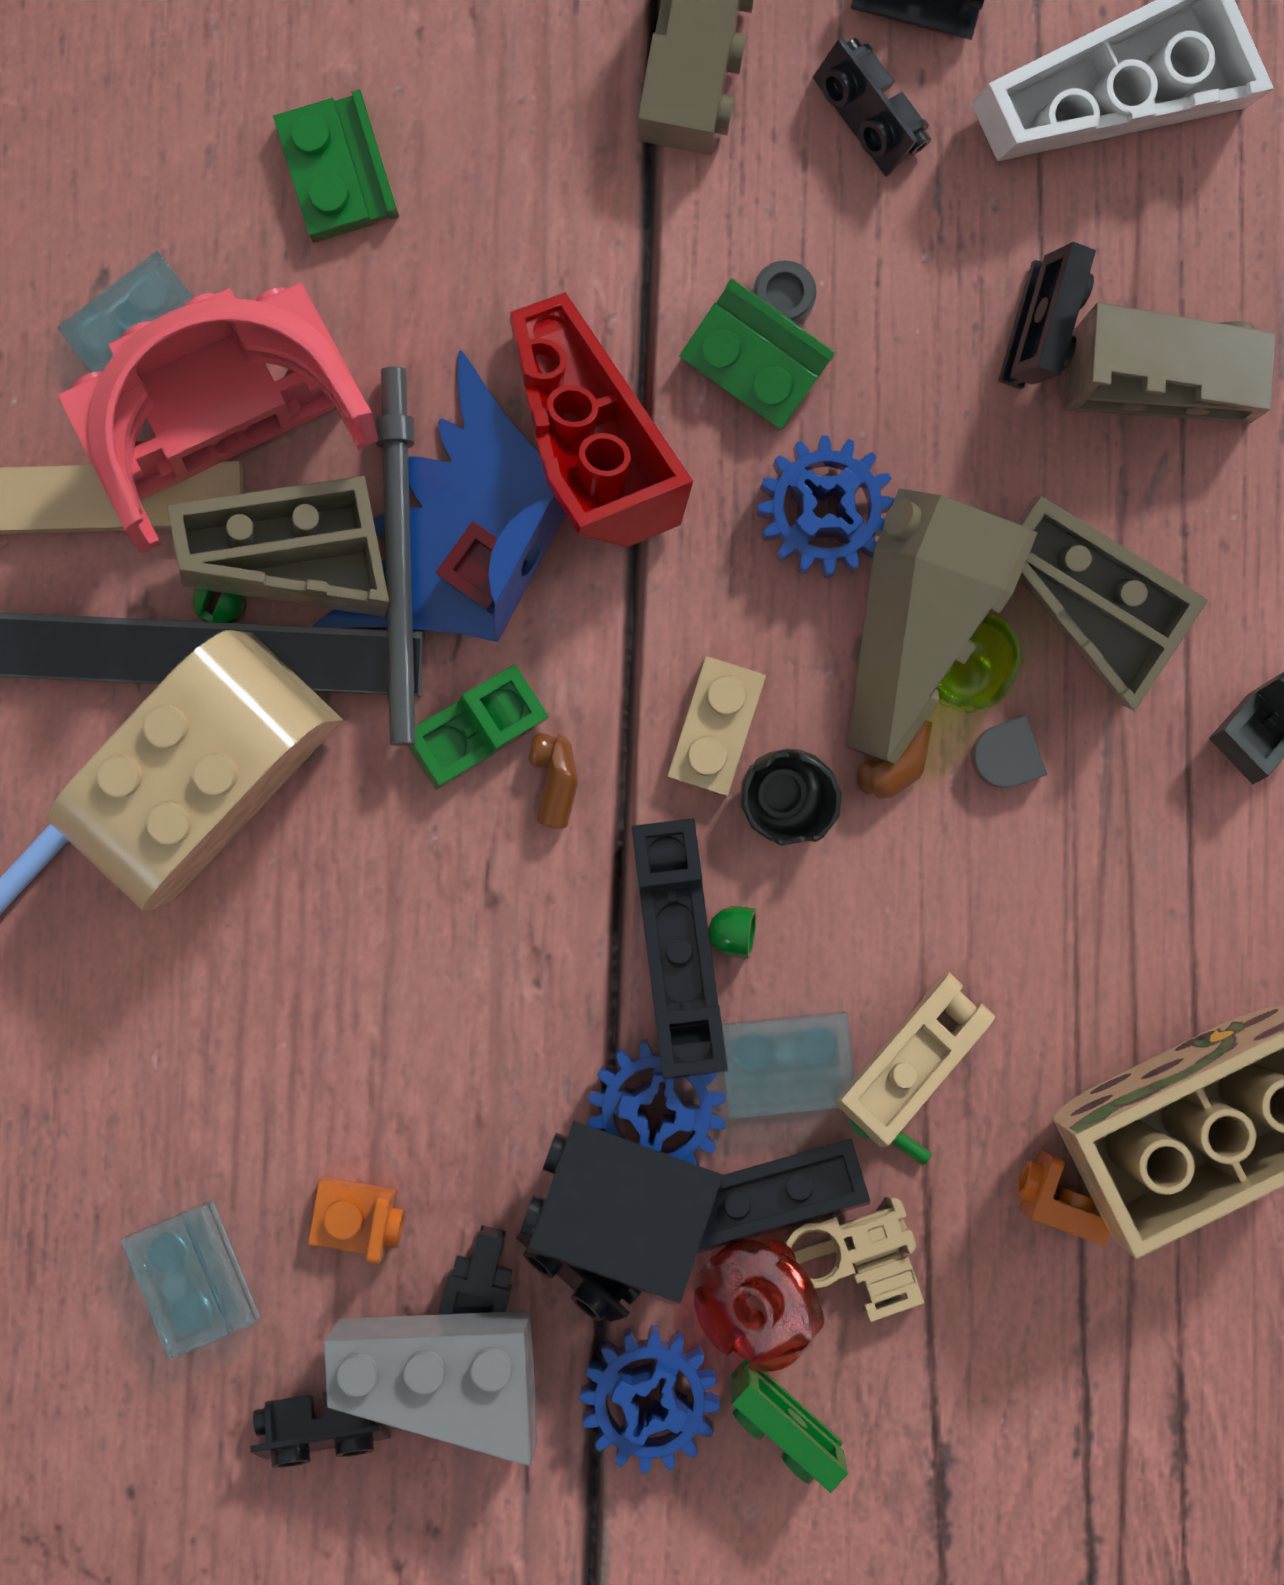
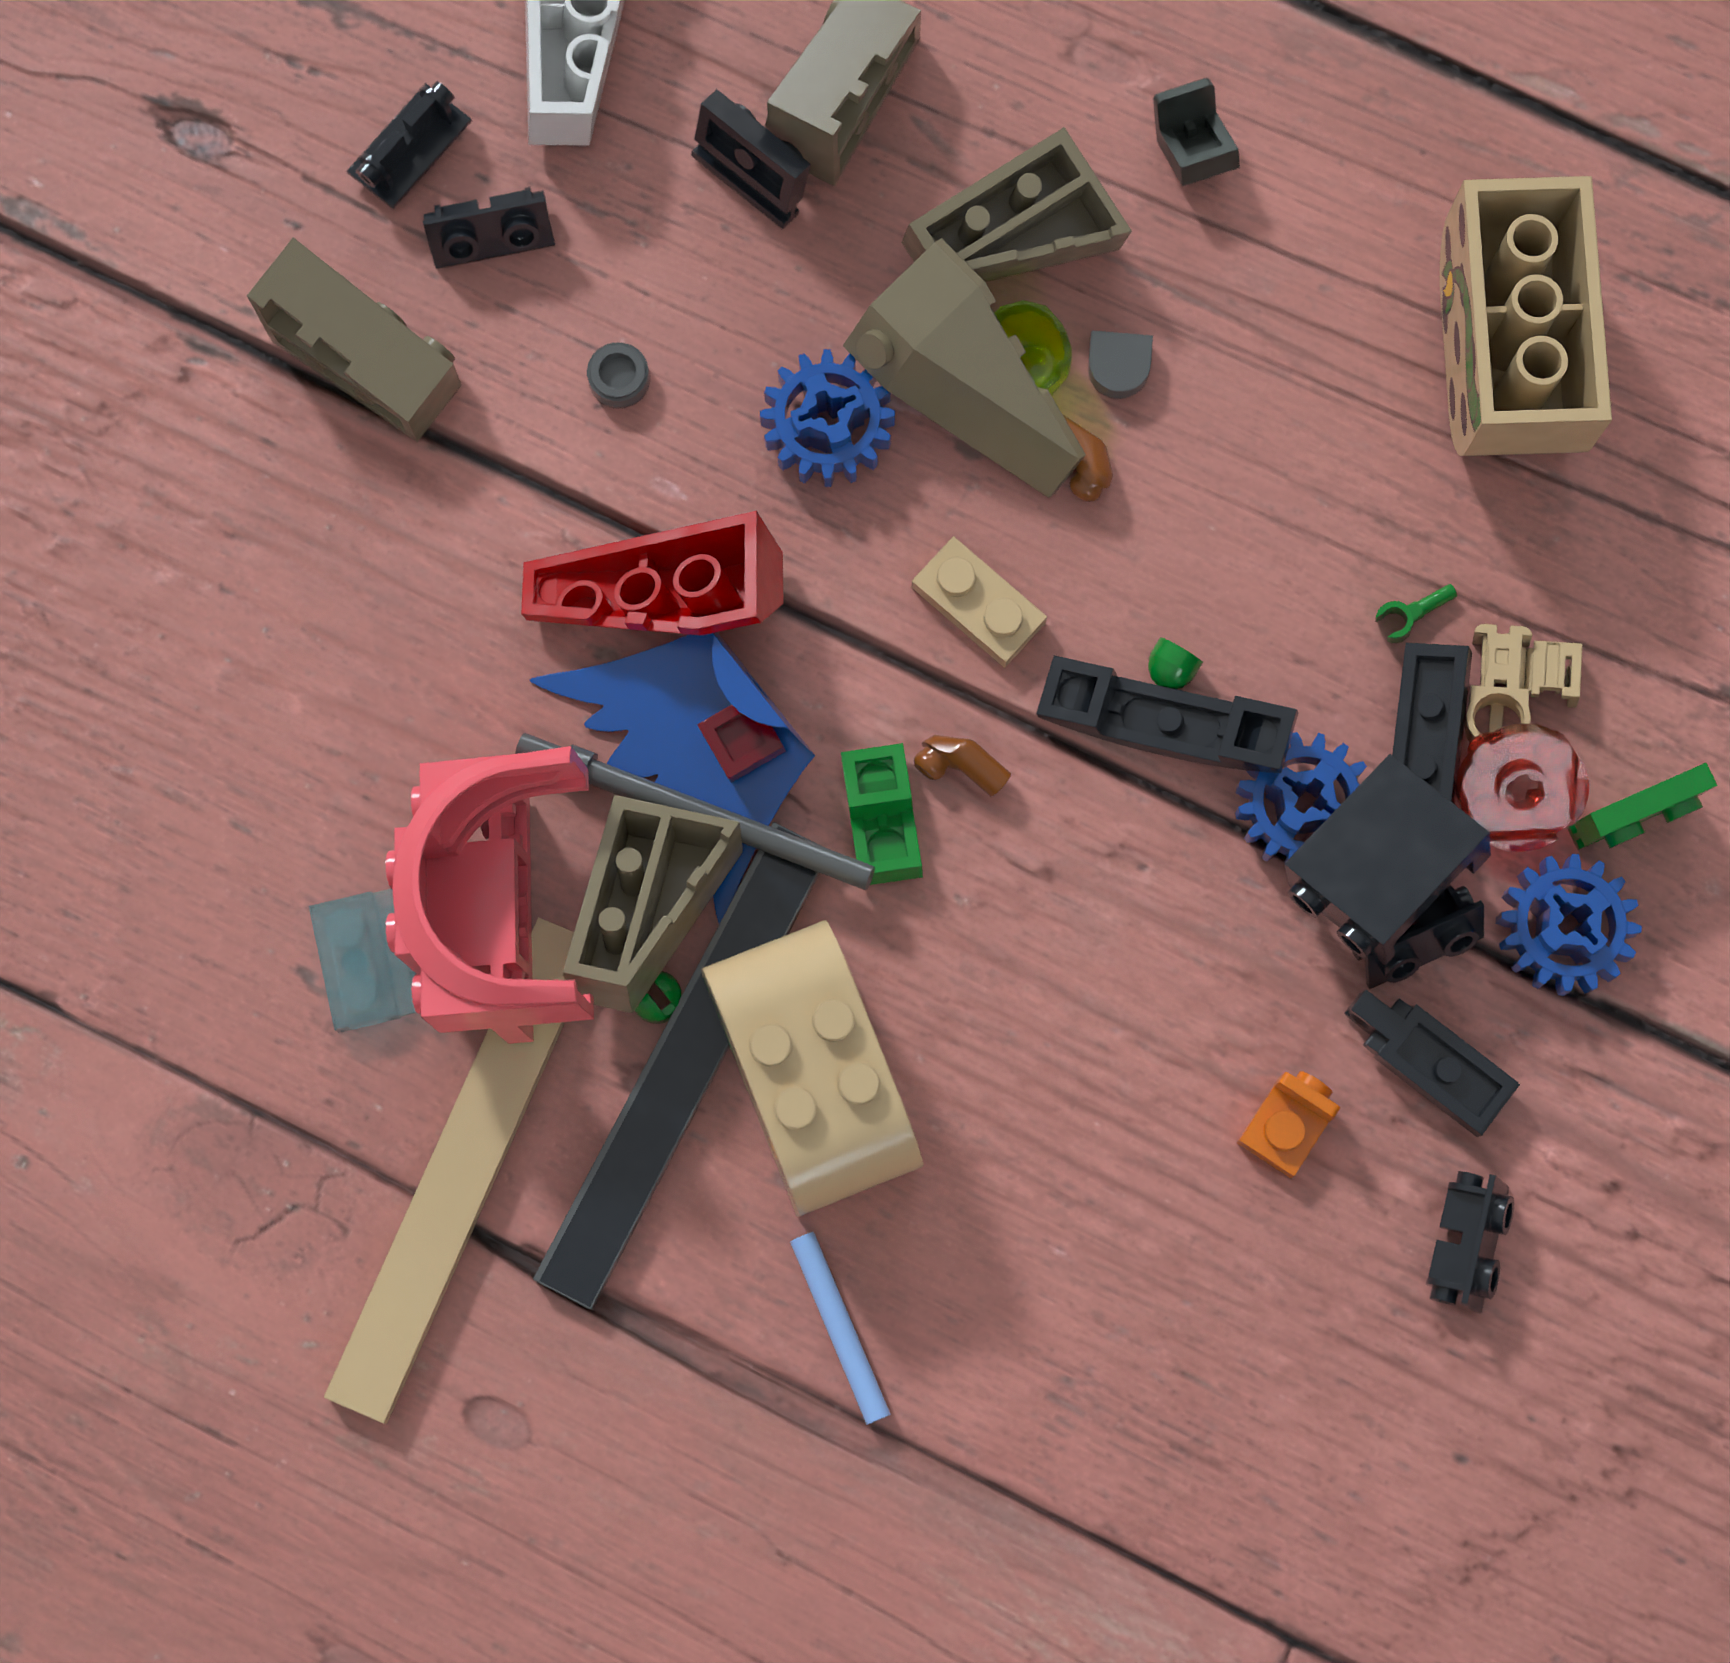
camera: 65 degrees left, 10 degrees down
(190, 1279) = (1280, 1301): clear light blue plate -> none
(335, 166) = (309, 714): green plate -> none
(440, 1377) = (1468, 1088): light grey wedge -> none
(757, 354) = (662, 418): green plate -> none
(787, 1064) = (1317, 666): clear light blue plate -> none
(790, 797) = (1074, 558): pearl dark grey hair -> none
(914, 1061) = (1359, 555): tan plate -> none
(1069, 1211) = (1545, 488): orange bracket -> none

